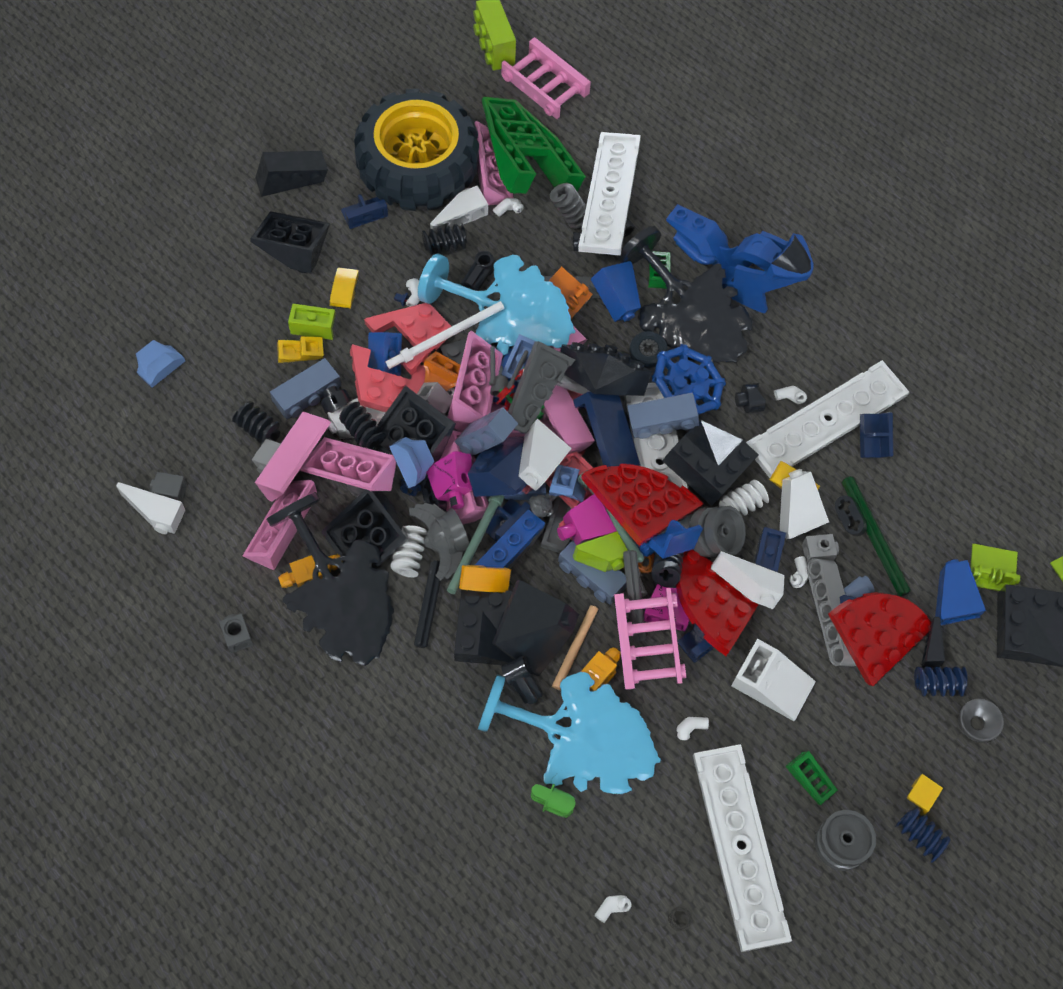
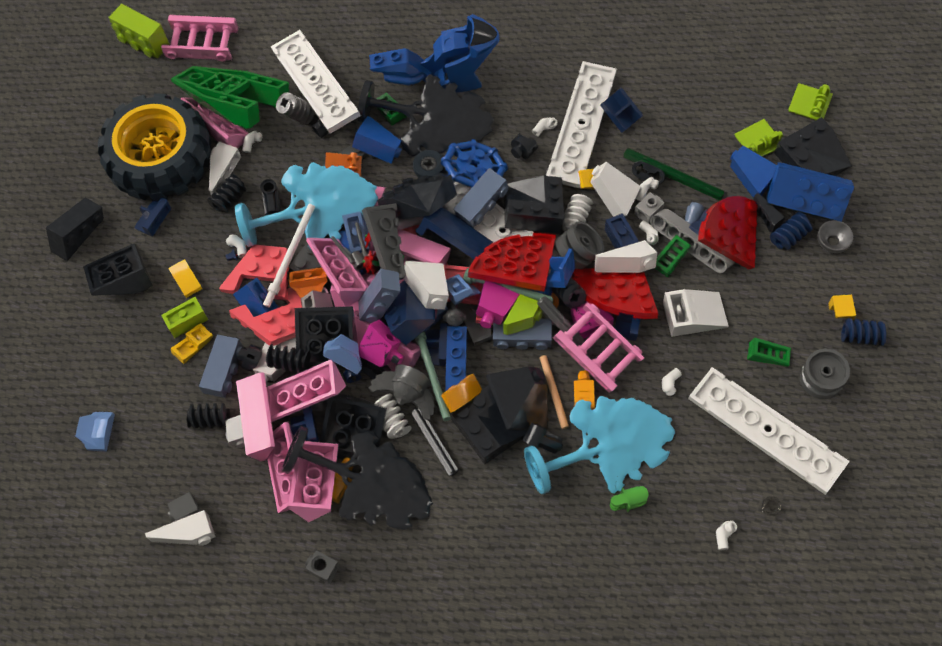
camera: 30 degrees left, 0 degrees up
(284, 551) = (312, 483): none -> bright pink slope
(330, 501) = (308, 421): none -> dark blue panel
(800, 618) = (671, 265): none -> green slope
(835, 525) = (649, 183): none -> white arm
(992, 656) = (810, 191): none -> blue brick

